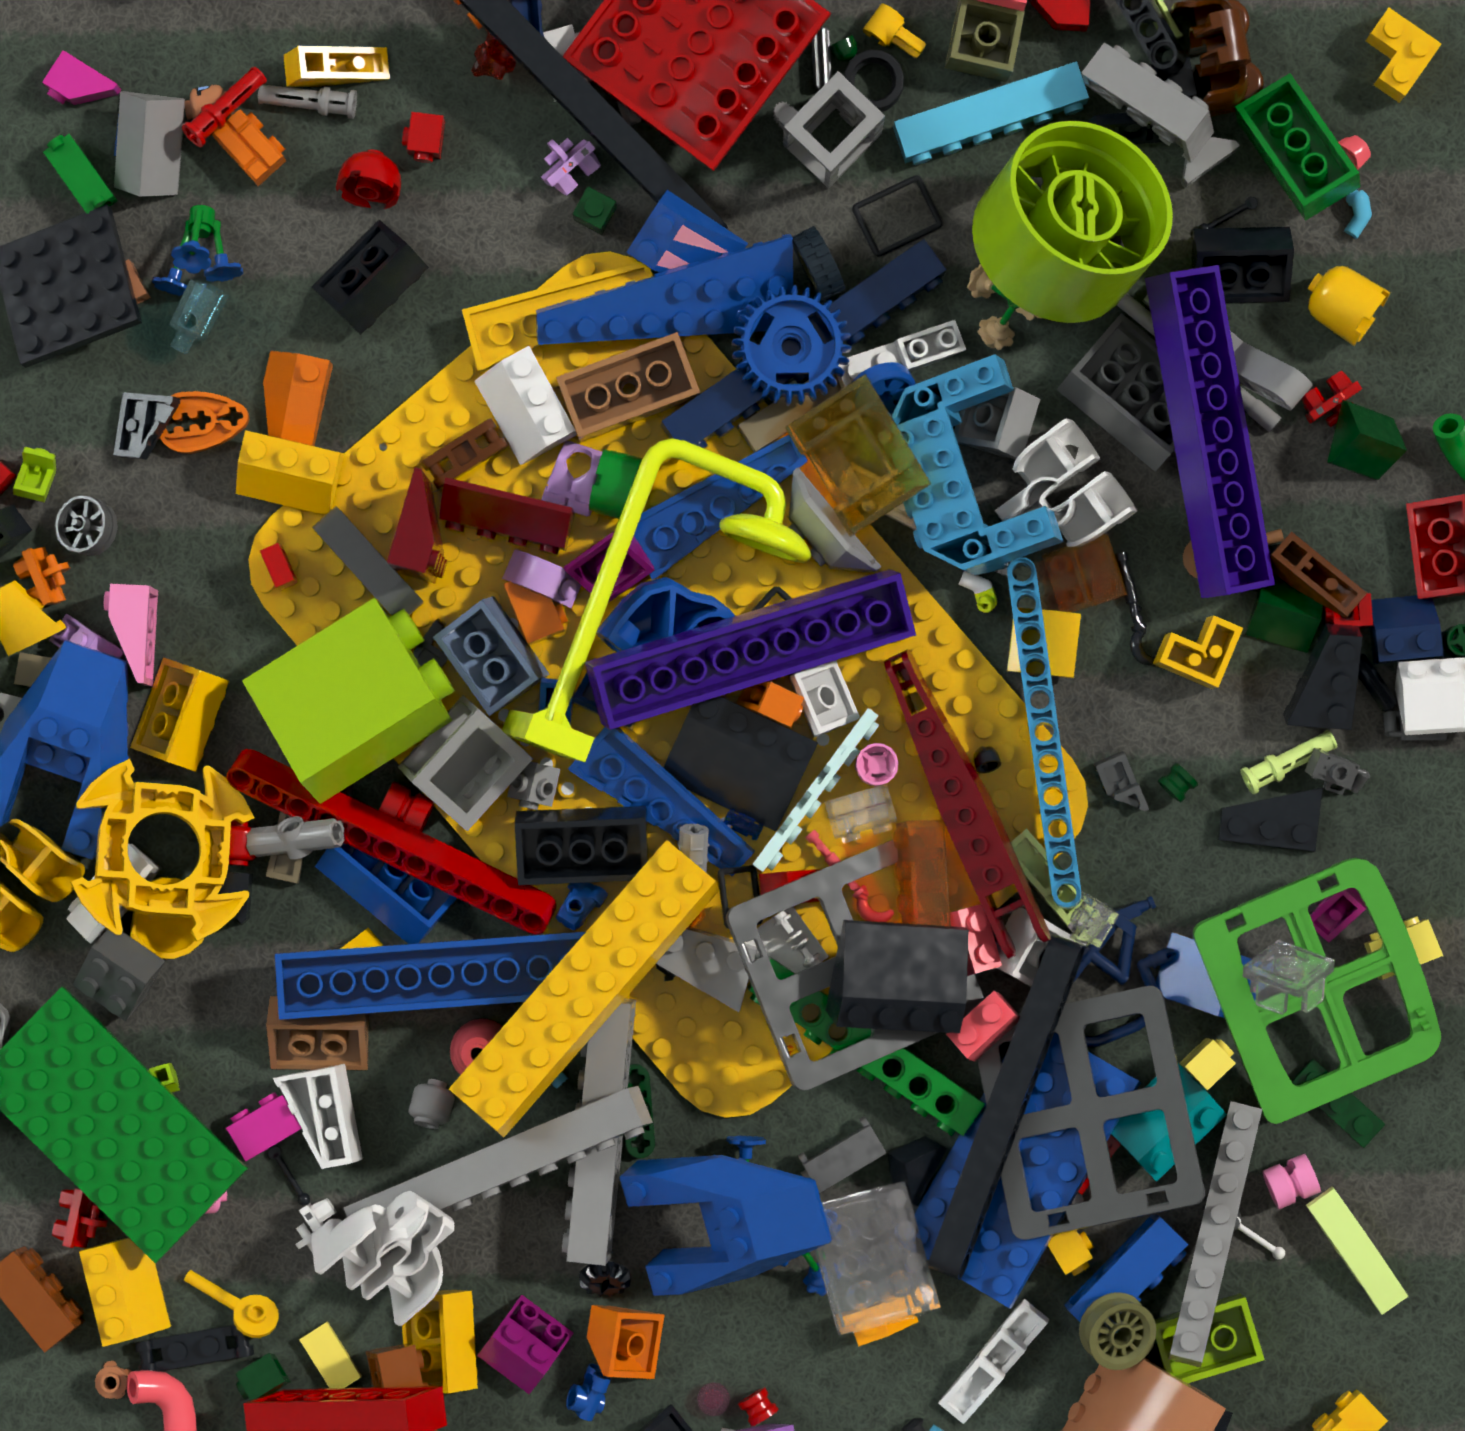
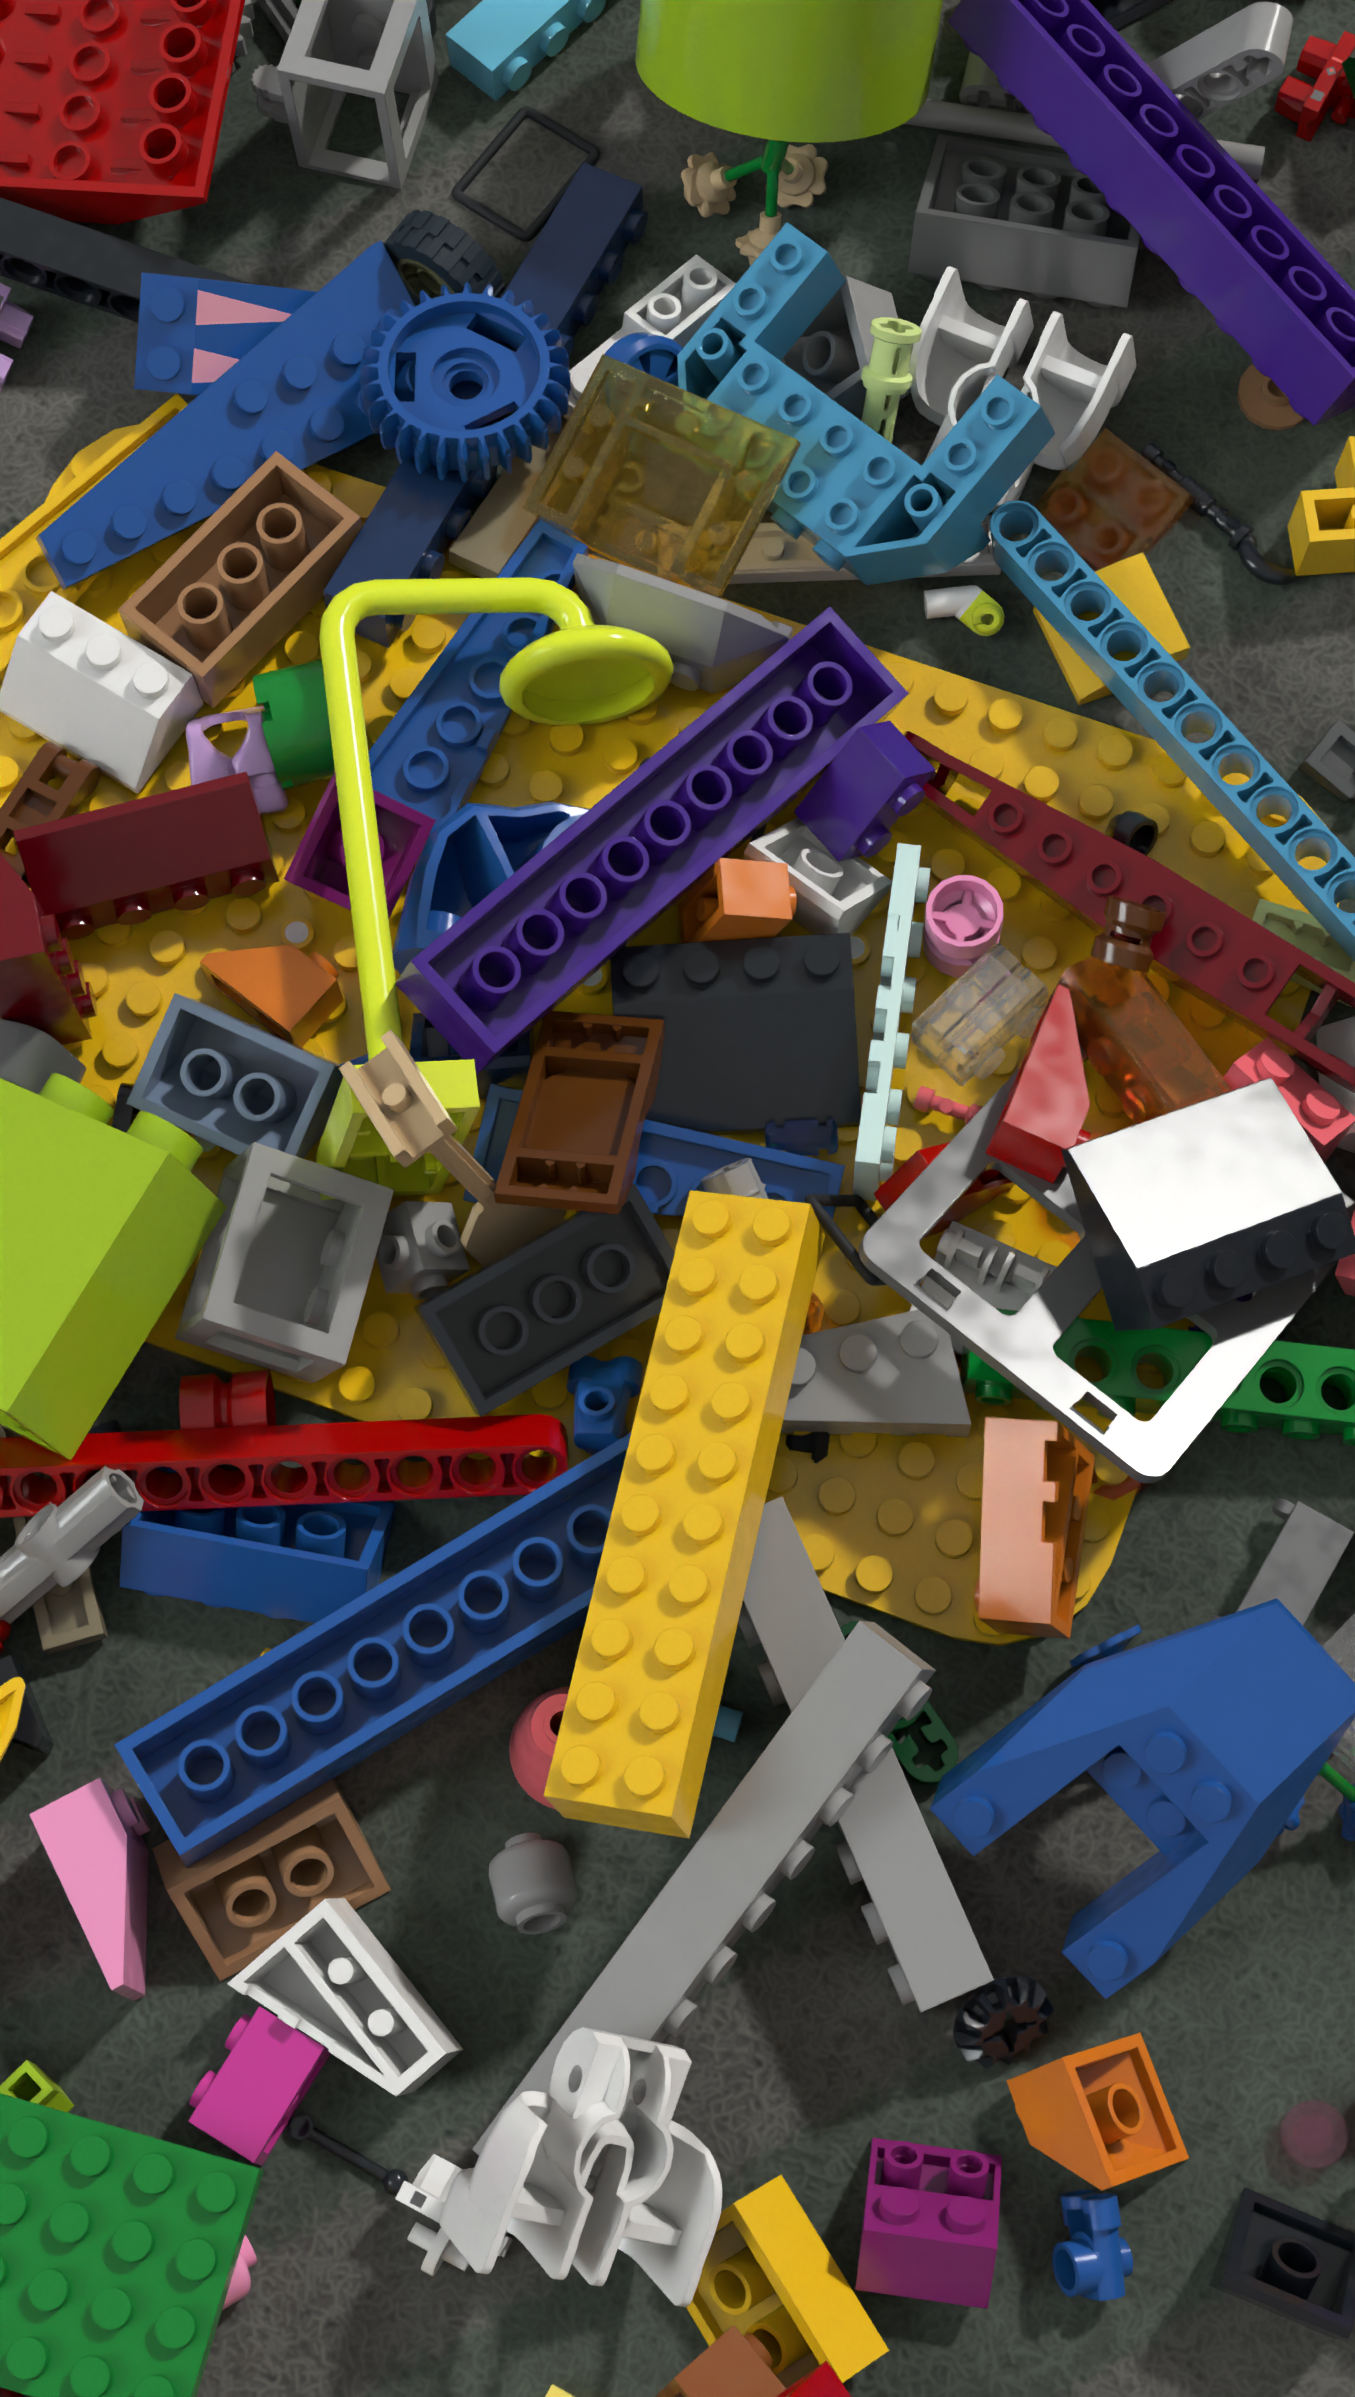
camera: 25 degrees left, 15 degrees down
(243, 992) = (104, 1871): none -> bright pink slope
(542, 578) = (259, 917): lavender brick -> none
(548, 766) = (416, 1122): none -> tan piece
(594, 210) = (57, 377): dark green brick -> none
(640, 770) = (582, 1113): none -> reddish brown slope
(739, 1074) = (1031, 1526): none -> wedge
(860, 880) = (1046, 1096): none -> slope
(867, 673) = (865, 792): none -> dark purple brick
(943, 823) = (1133, 921): none -> reddish brown wheel
(1000, 460) = (887, 372): none -> yellowish green pin

